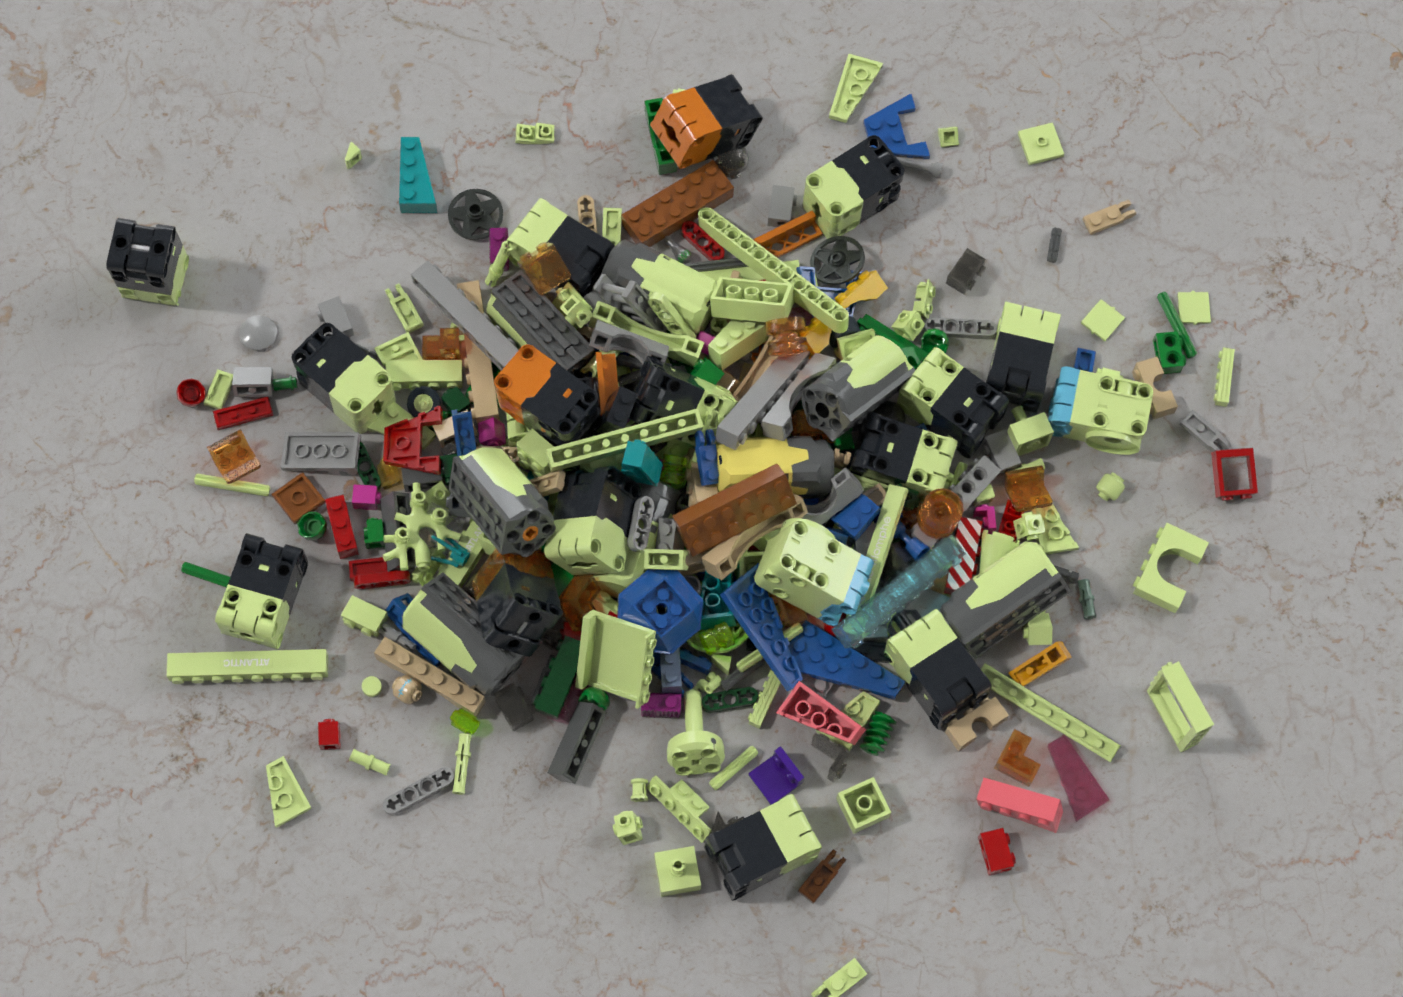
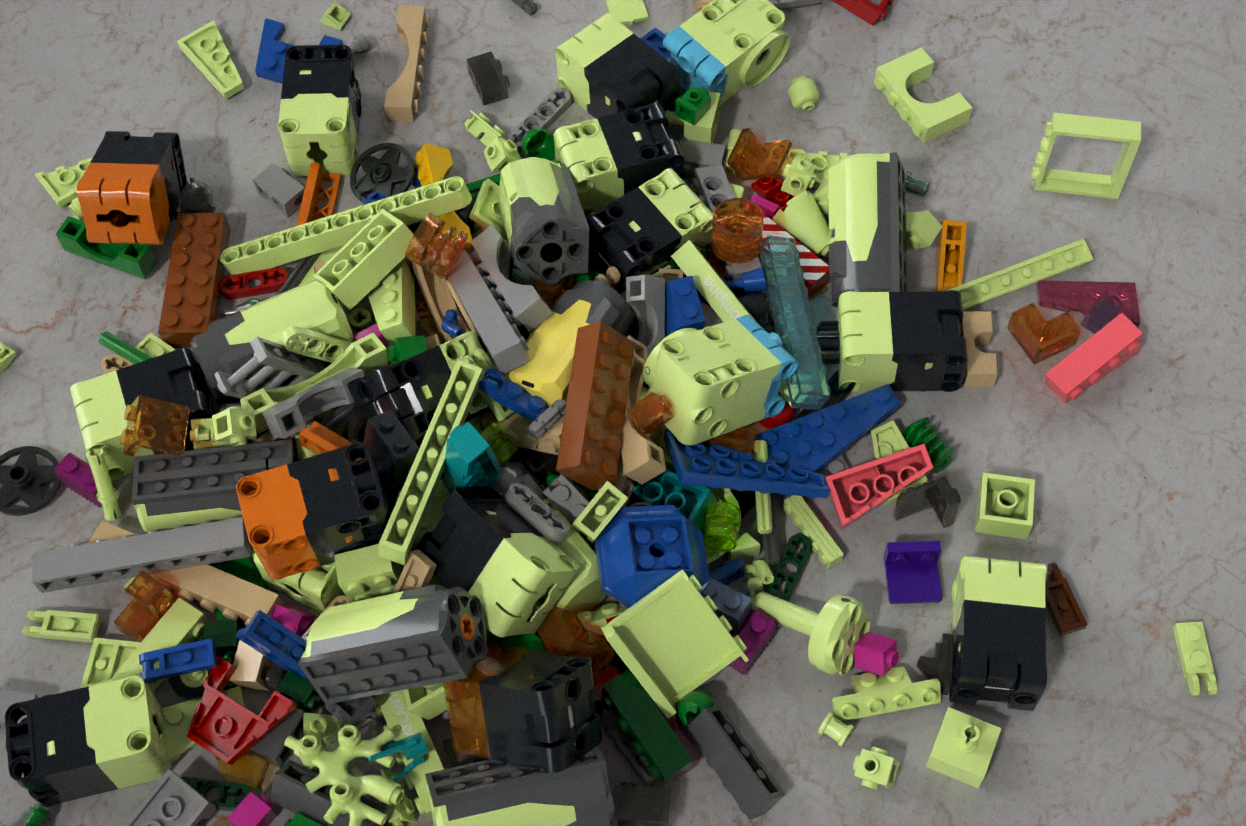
camera: 50 degrees left, 10 degrees down
(422, 389) = (178, 660): none -> blue plate
(598, 208) = (122, 348): none -> green axle
(693, 73) = (63, 182): none -> yellowish green wing
(702, 783) = (876, 653): none -> dark pink brick
(705, 487) = (547, 418): none -> light grey axle
(733, 767) = (871, 604): yellowish green axle -> none
(747, 383) = (450, 323): none -> blue arm
(755, 545) = (651, 412): none -> clear orange brick
(910, 227) = (401, 97): none -> tan arch
(996, 851) = (1132, 414): red brick -> none
(1021, 425) = (695, 101): none -> green brick
(1060, 788) = (1100, 314): none -> clear purple brick

